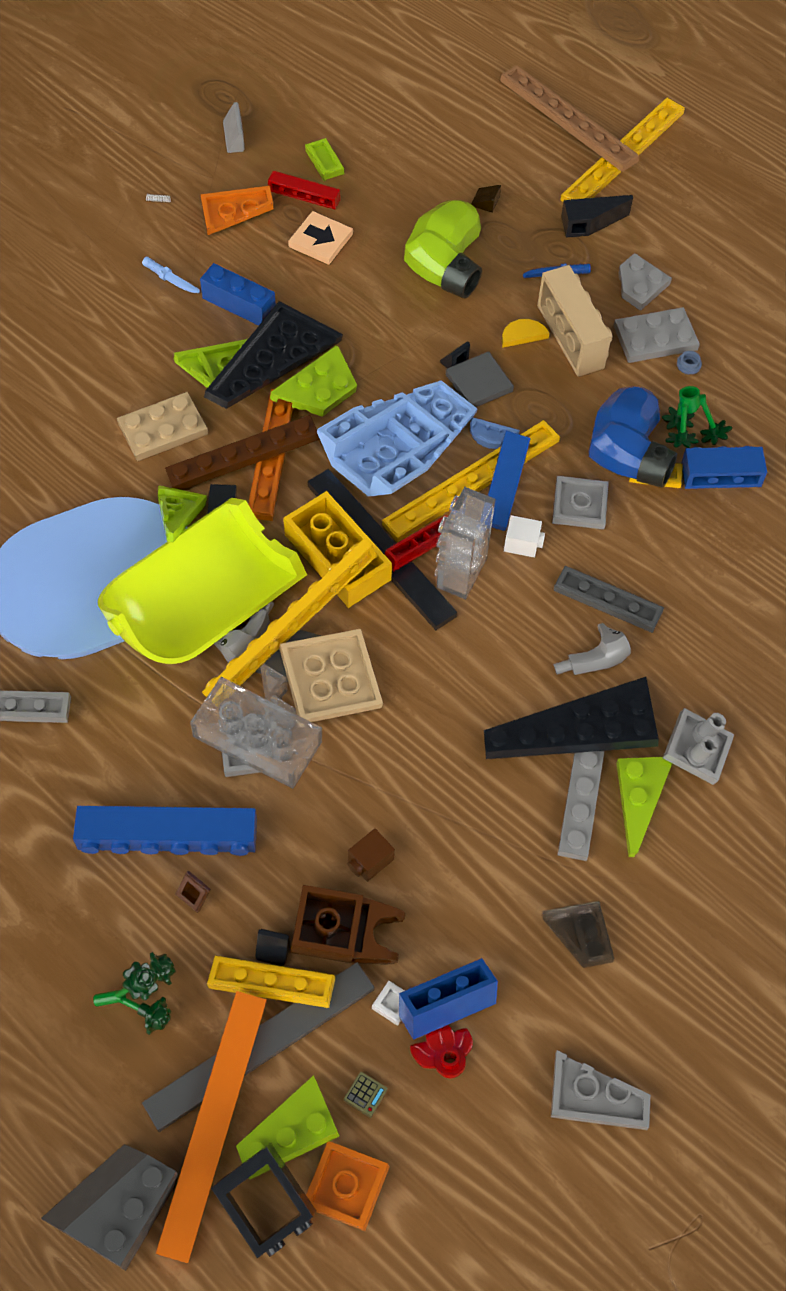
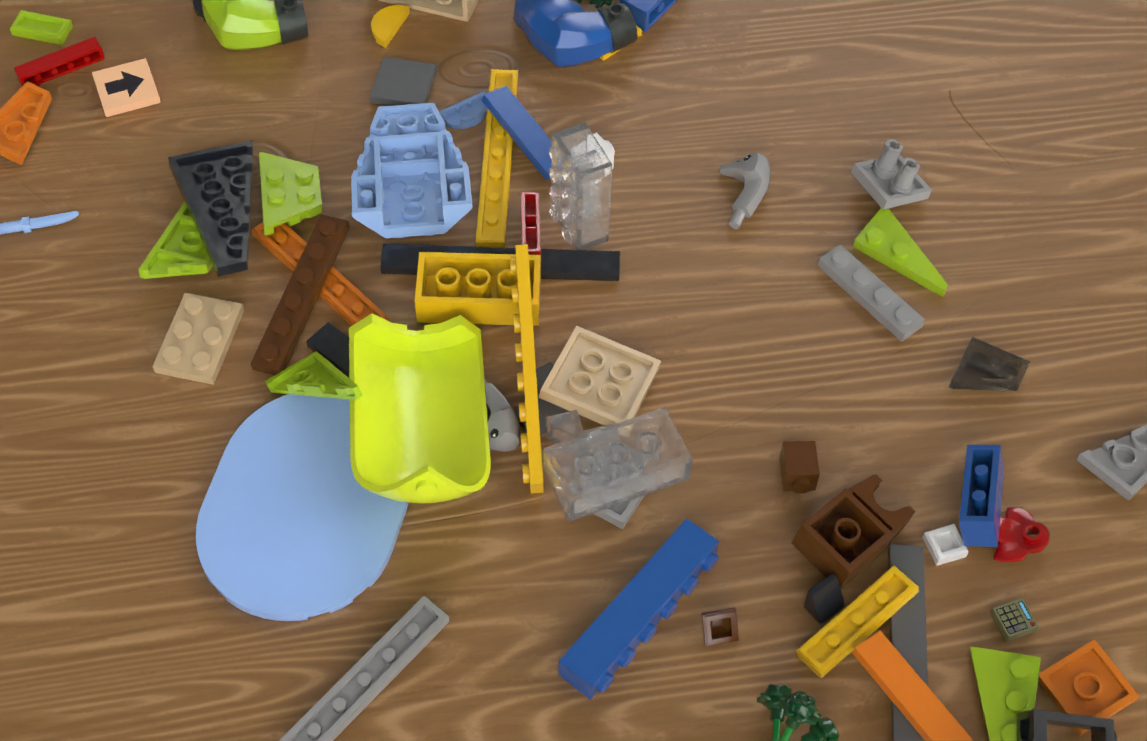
camera: 50 degrees left, 5 degrees down
(237, 294) = (123, 183): blue brick -> none
(457, 356) = (362, 80): black slope -> none
(580, 502) = (593, 102): light grey tile -> none
(598, 722) = (808, 234): black wing -> none
(608, 599) = (700, 147): dark grey tile -> none

